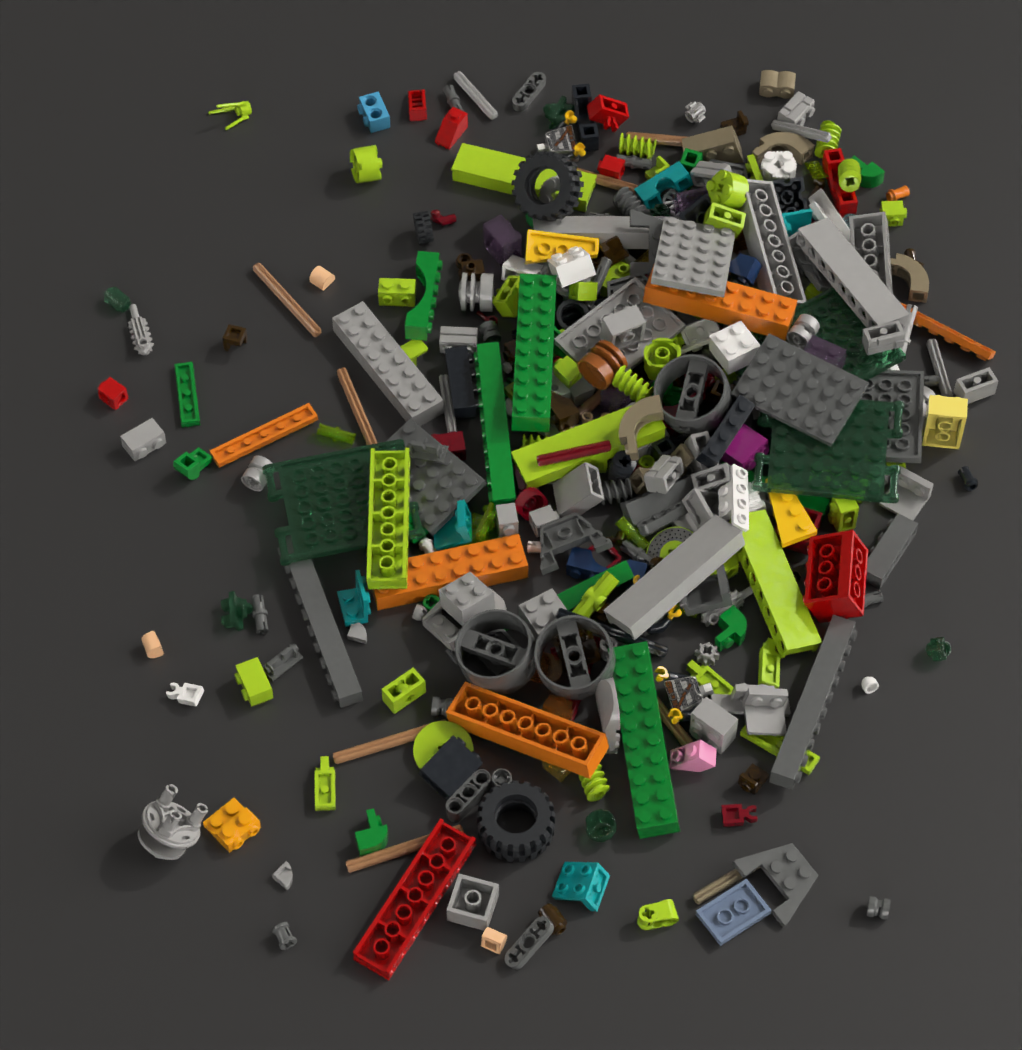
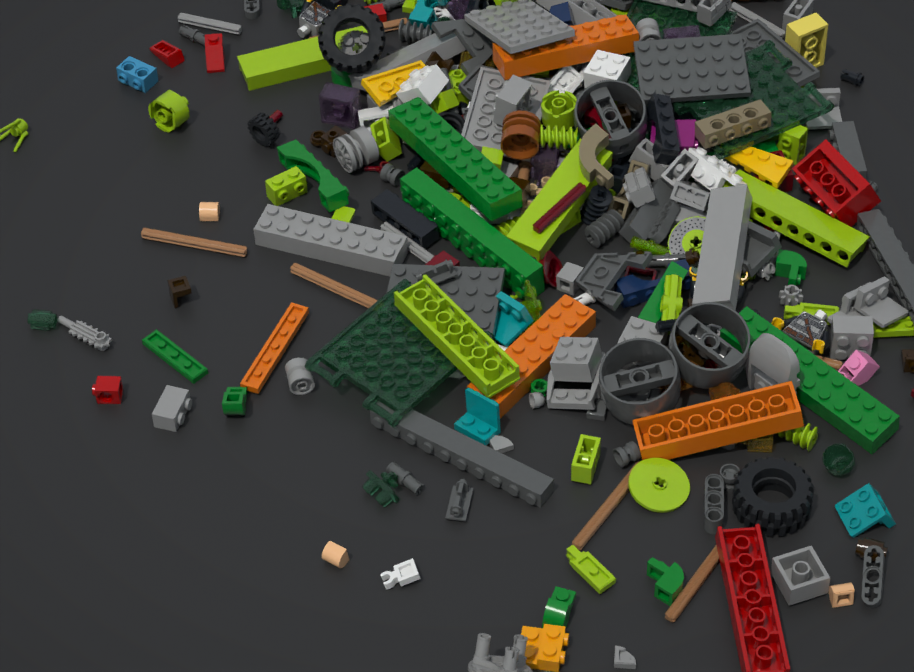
camera: 35 degrees left, 10 degrees down
(254, 682) = (454, 528): lime brick -> none
(267, 803) = (559, 607): none -> green brick
(336, 434) = (336, 312): clear neon green pin -> none
(450, 767) = (681, 491): black brick -> none
(457, 337) = (366, 191): light grey brick -> none
(506, 520) = (547, 289): light grey brick -> none
(578, 490) = (580, 238): light grey brick -> none
(769, 664) = (842, 274): lime hinge -> none
(799, 466) = (732, 124): none -> dark tan brick

